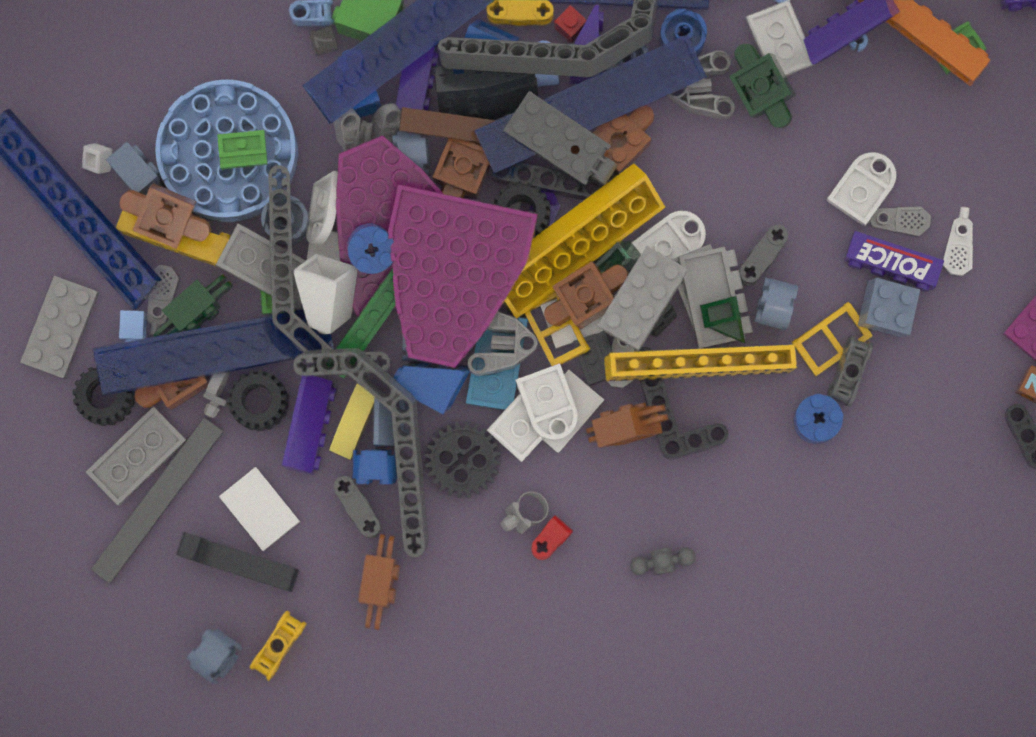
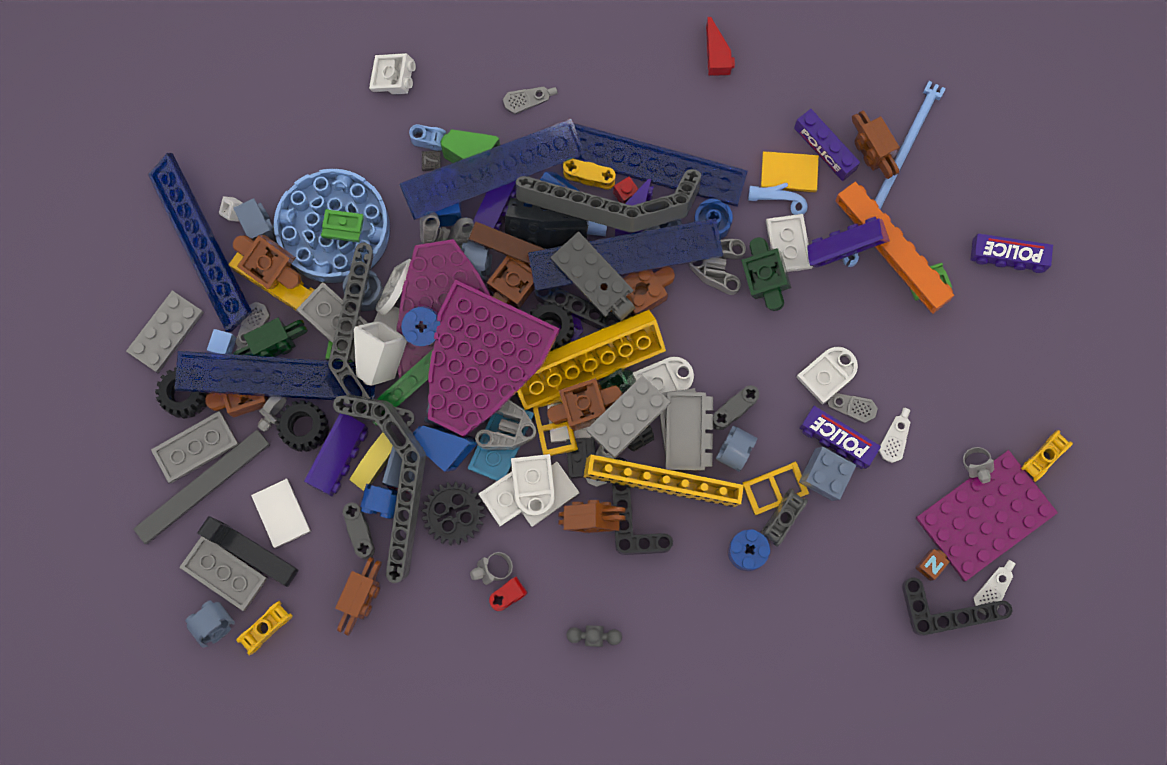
camera: 10 degrees right, 5 degrees down
(212, 594) = (223, 573): none -> light grey plate
(724, 317) = (691, 449): dark green slope -> none

